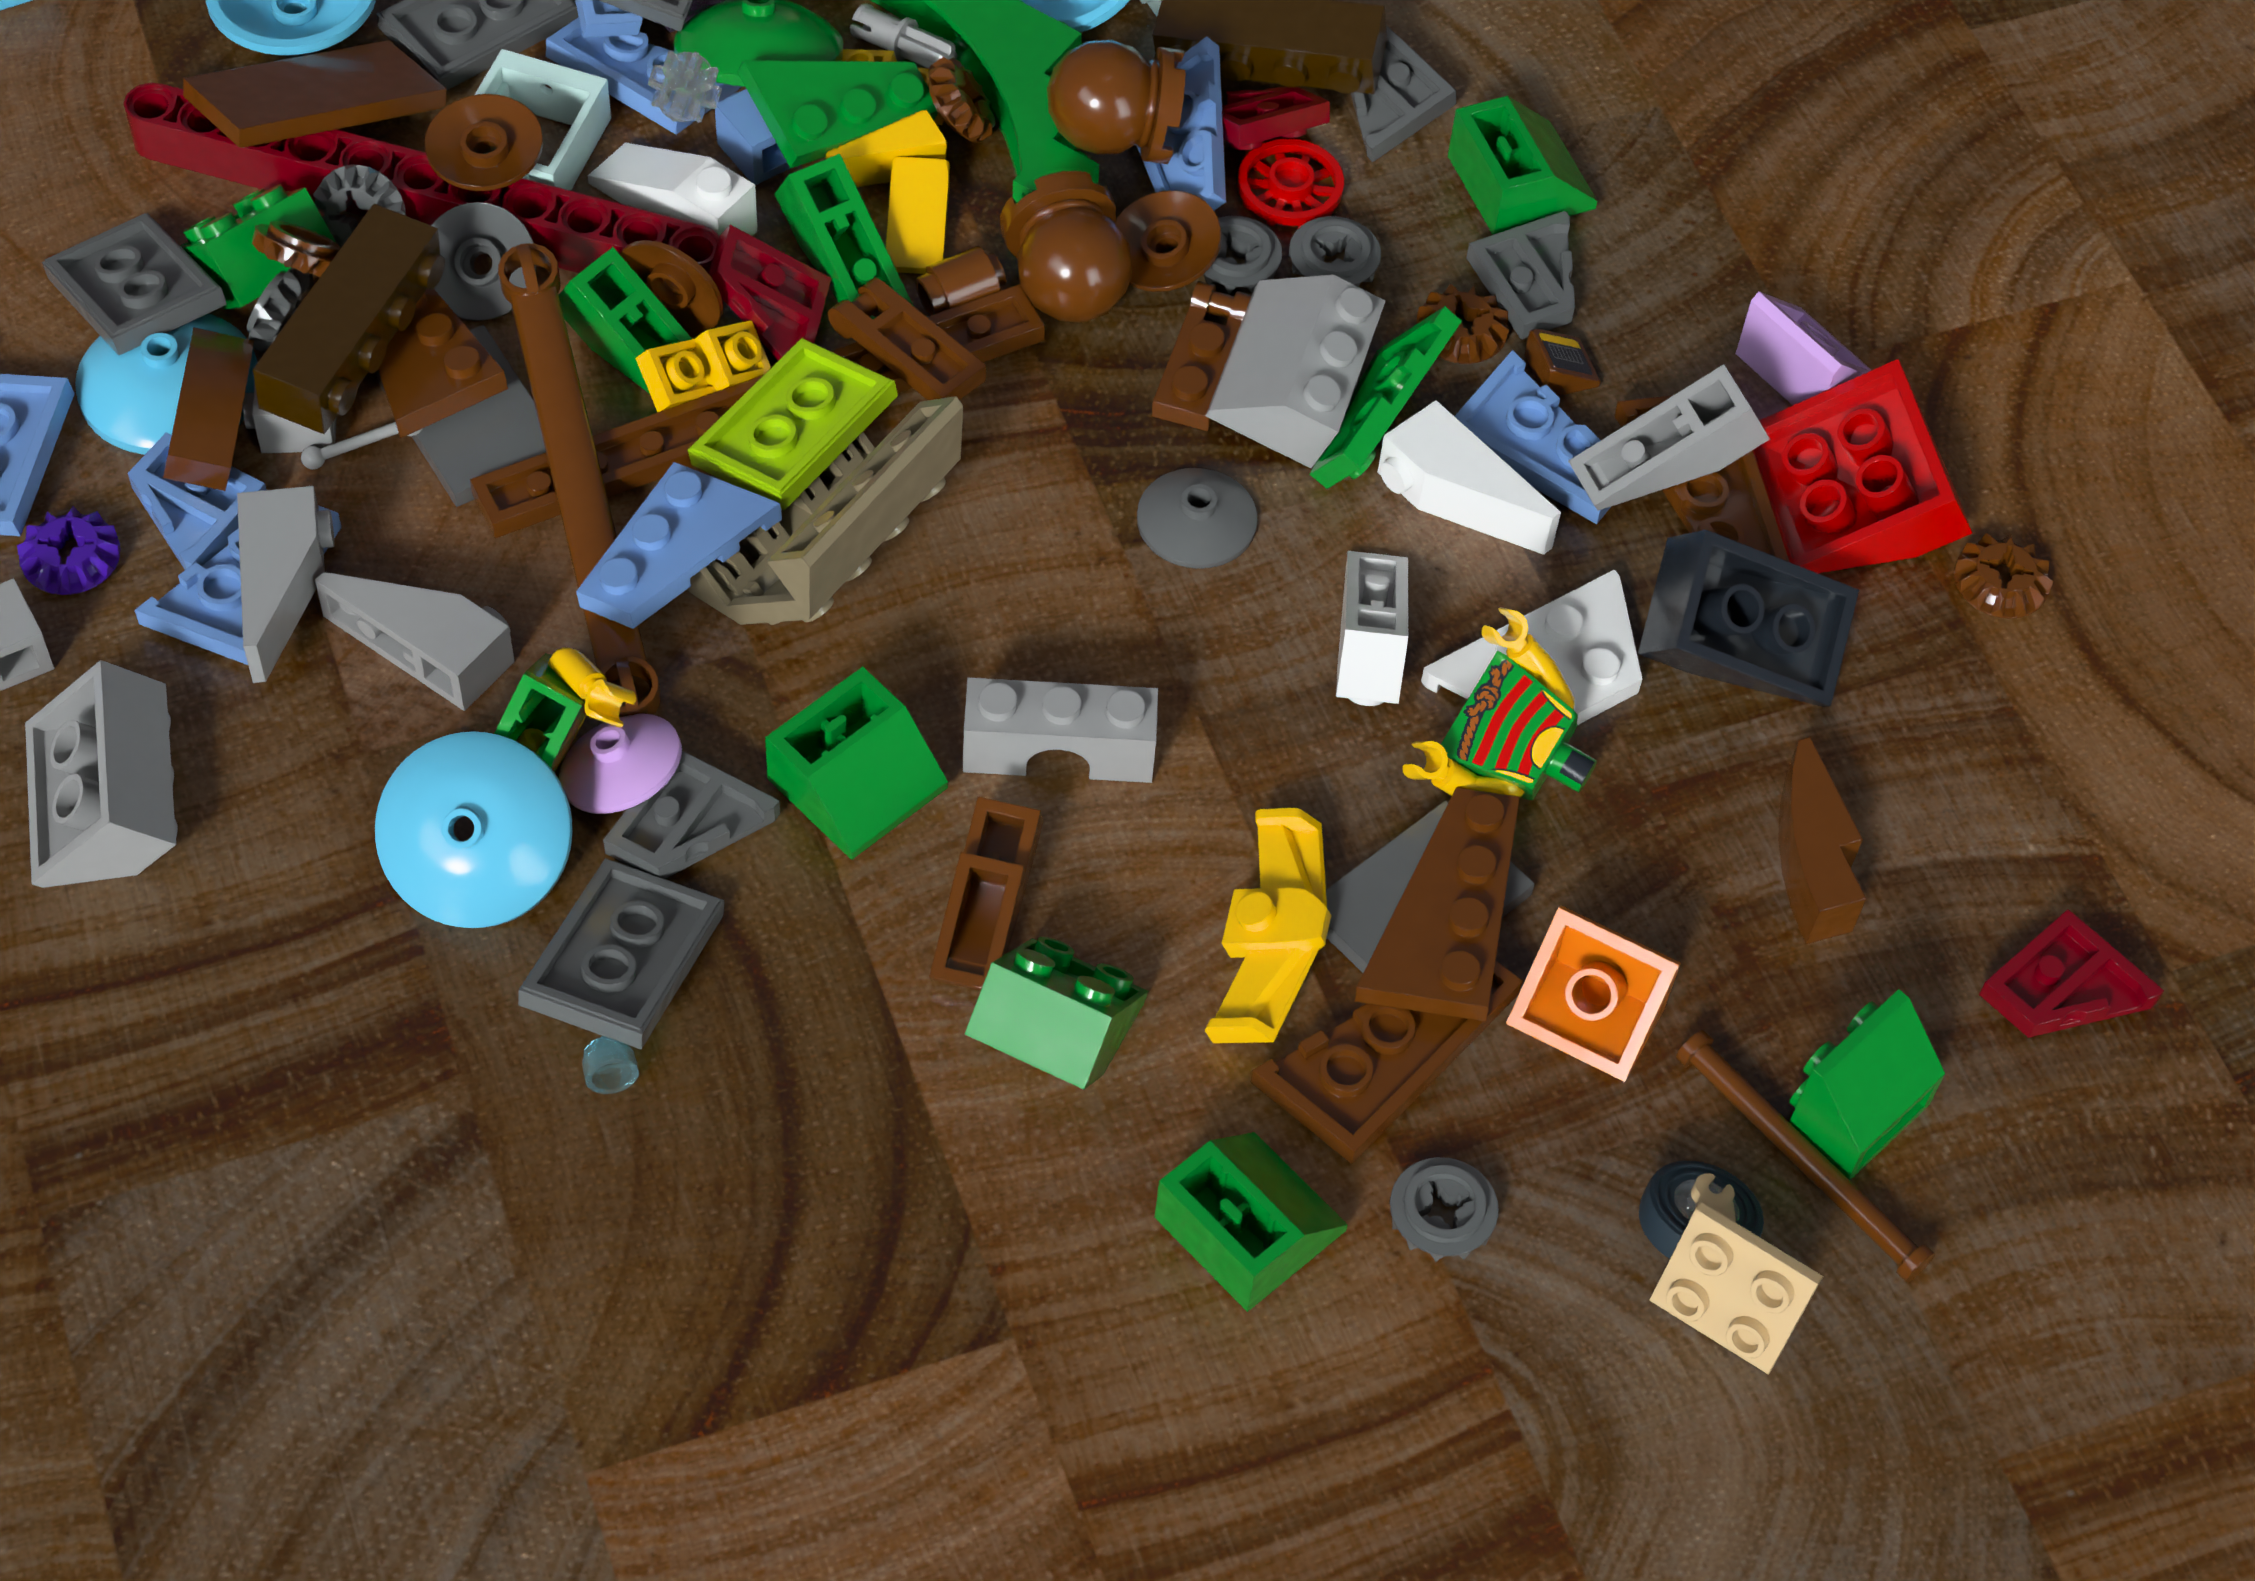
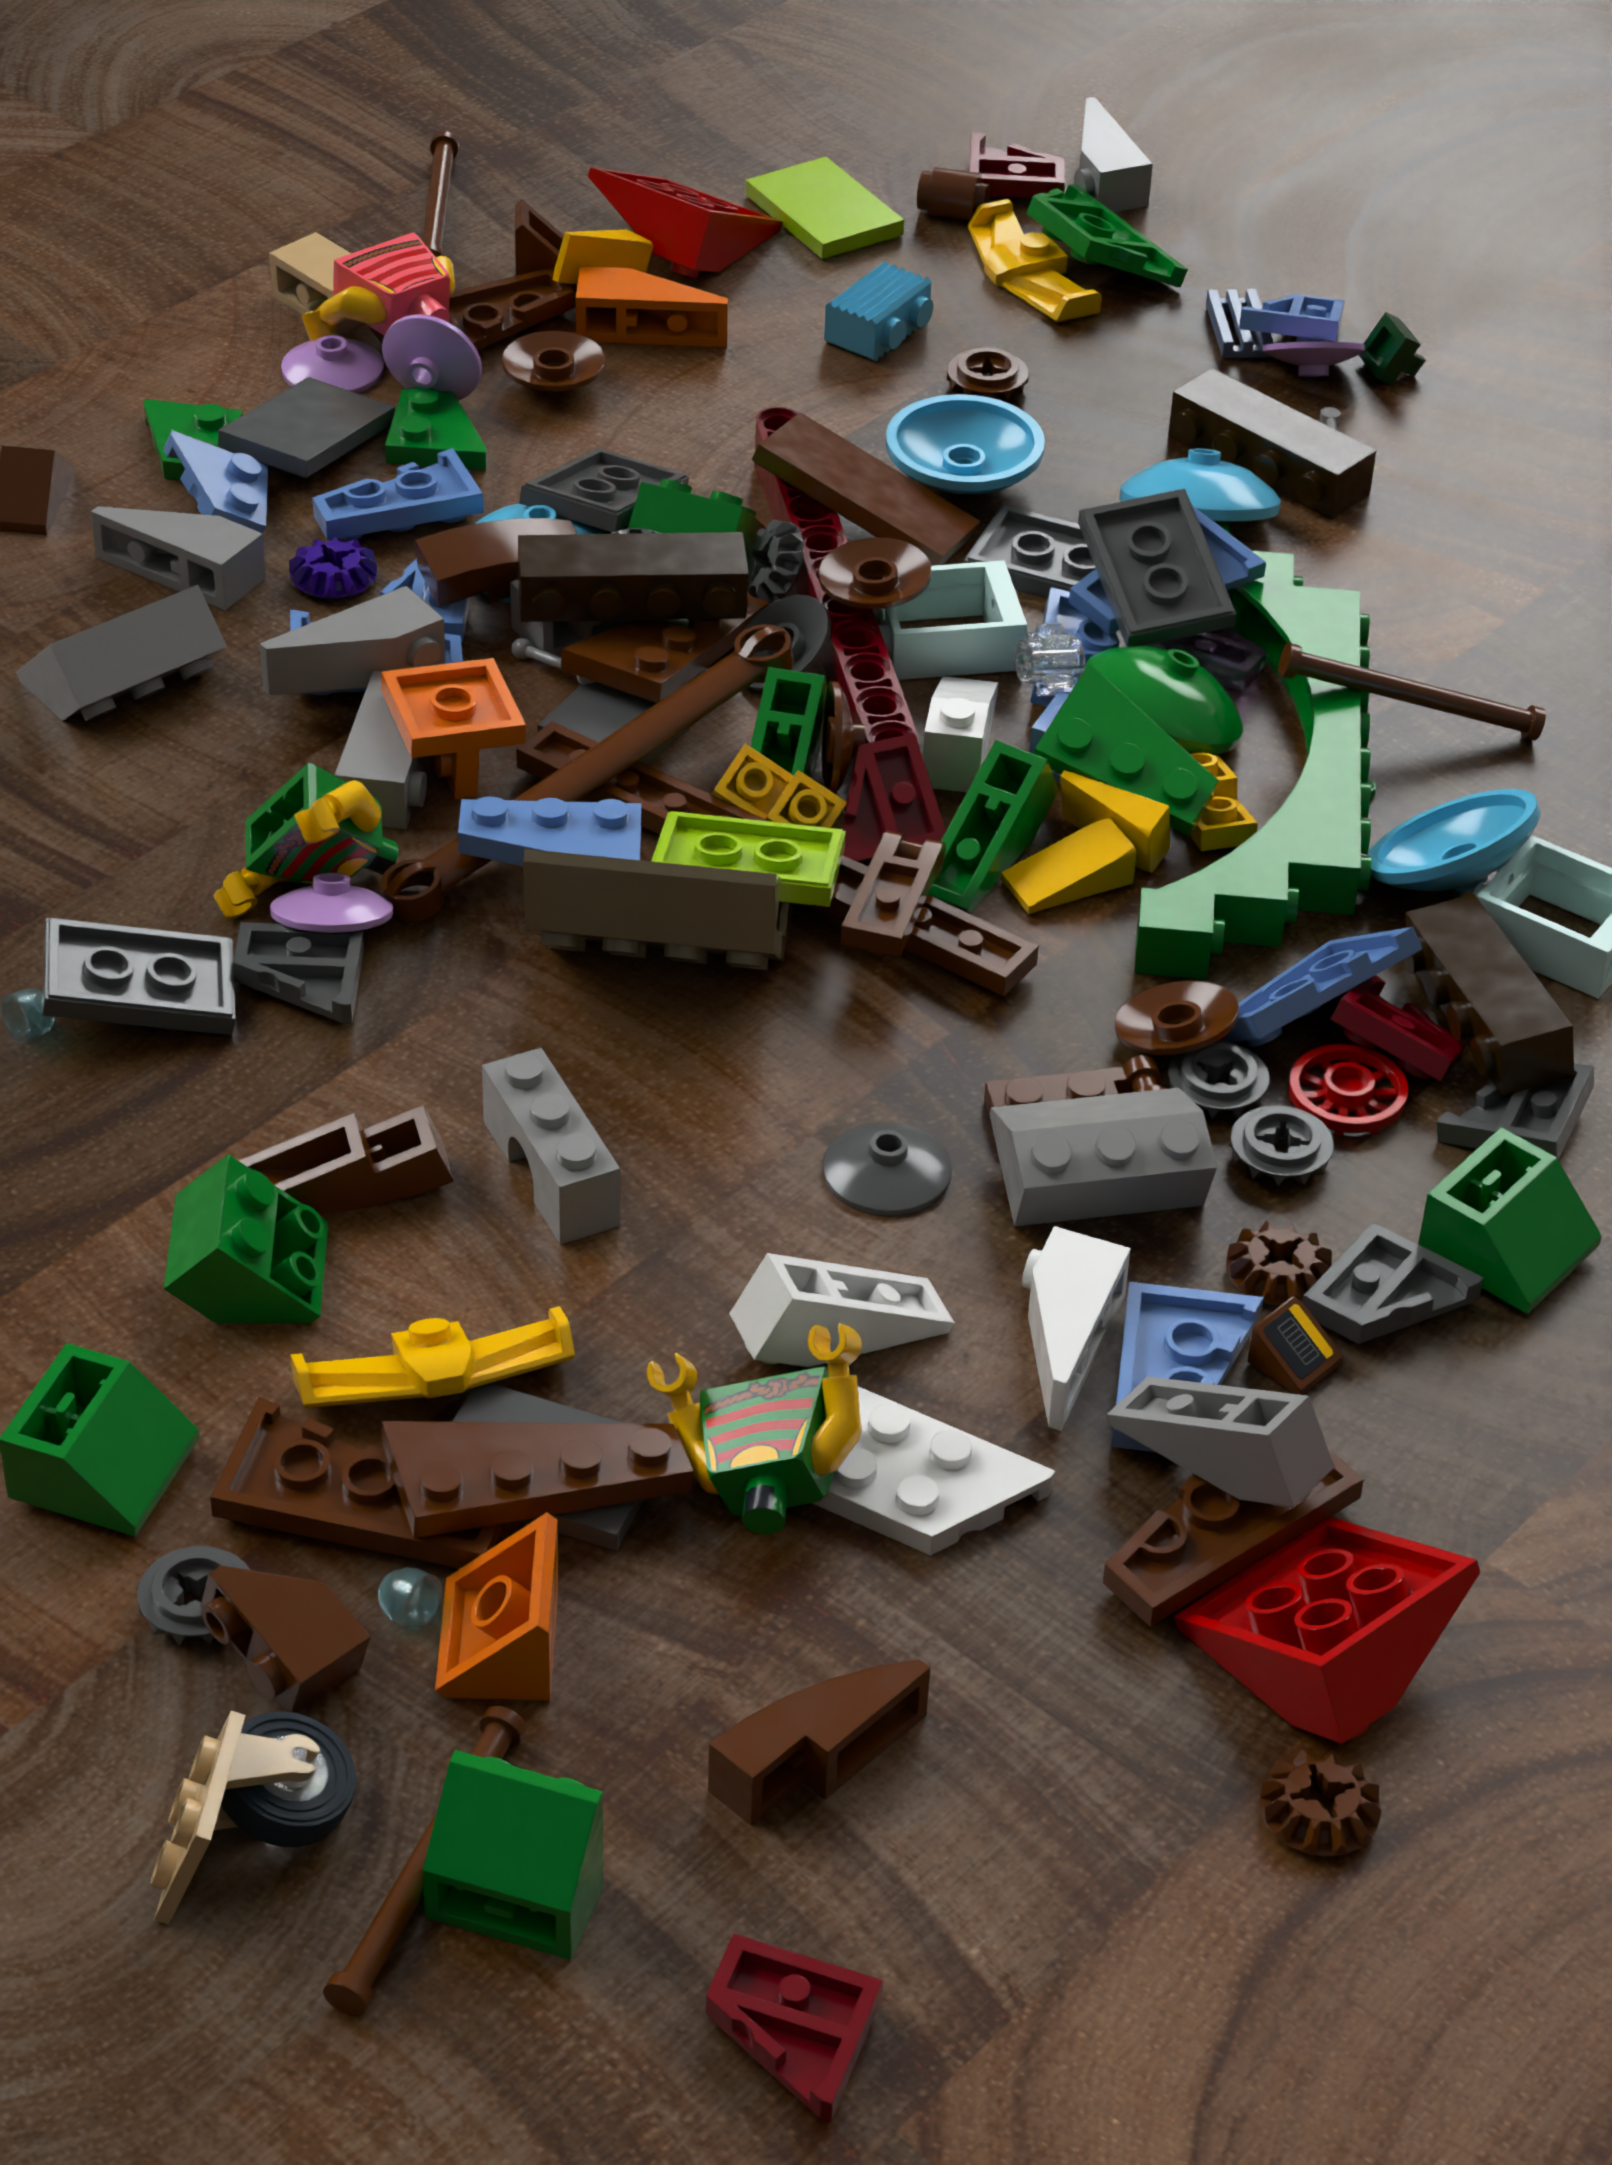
camera: 65 degrees right, 15 degrees down
(295, 246) = (671, 512): reddish brown gear -> none
(435, 542) = (452, 715): none -> orange bracket
(517, 837) = (192, 843): medium azure dish -> none
(854, 763) = (417, 1028): green slope -> none
(900, 36) = (1266, 782): light grey axle -> none
(959, 280) = (1015, 910): reddish brown brick -> none
(960, 100) = (1198, 826): reddish brown gear -> none
(1068, 247) = (1096, 949): reddish brown tile -> none
(1114, 98) = (1274, 898): reddish brown tile -> none
(1381, 396) = (1128, 1219): green wing -> none
(1525, 1056) = (410, 1597): none -> clear light blue hinge
(1553, 1154) = (286, 1630): none -> reddish brown slope
(1748, 618) = (1054, 1579): black slope -> none
(1794, 350) = (1486, 1516): lavender slope -> none

